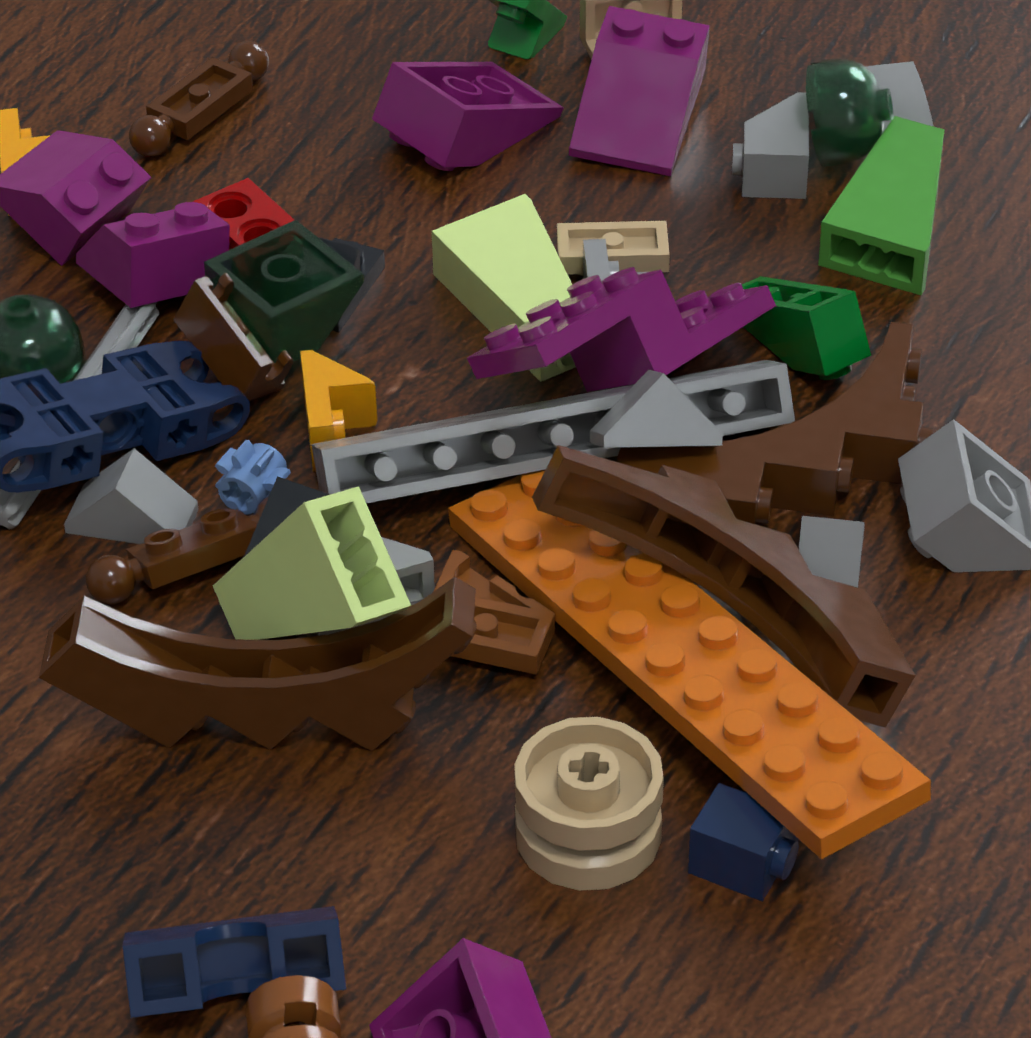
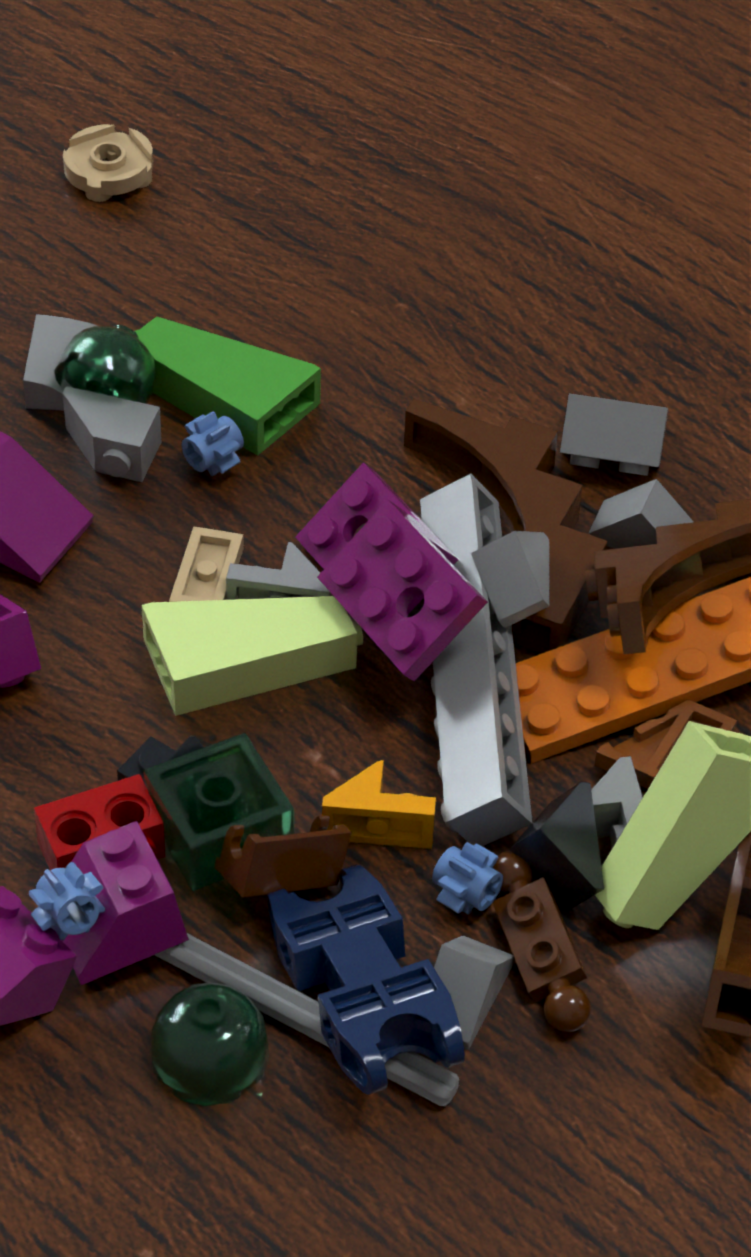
camera: 80 degrees left, 5 degrees up
(113, 191) = (67, 901): none -> medium blue gear
(791, 212) = (212, 443): none -> medium blue gear
(811, 327) = (384, 446): green slope -> none

